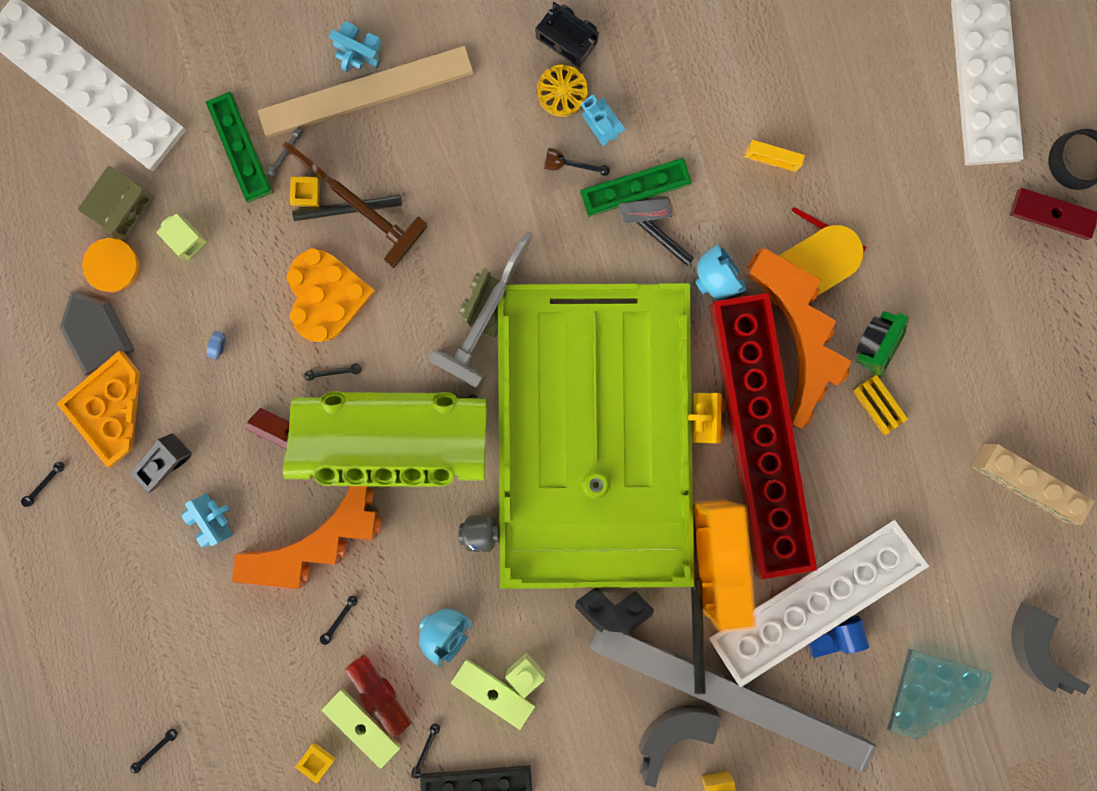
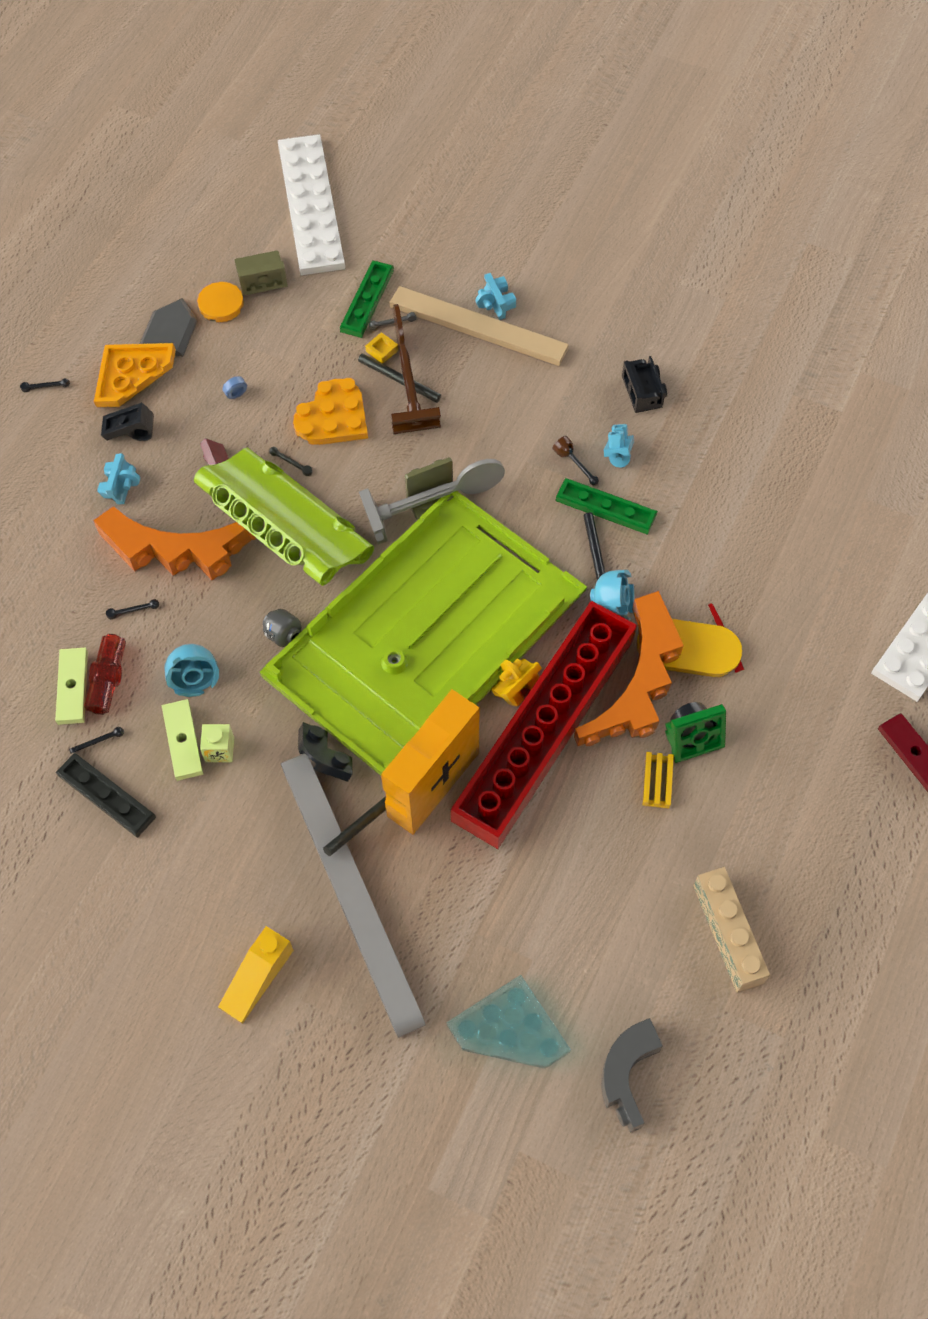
camera: 45 degrees right, 25 degrees down
(181, 236) = (279, 316): yellowish green brick -> none
(315, 762) = (18, 682): yellow plate -> none
(562, 90) = (609, 413): yellow wheel -> none
(645, 210) = (599, 522): sticker -> none
(671, 727) = (279, 872): dark grey arch -> none
(774, 156) = (724, 555): yellow tile -> none
(820, 602) = (479, 875): white plate -> none
(846, 637) = (474, 919): blue plate -> none

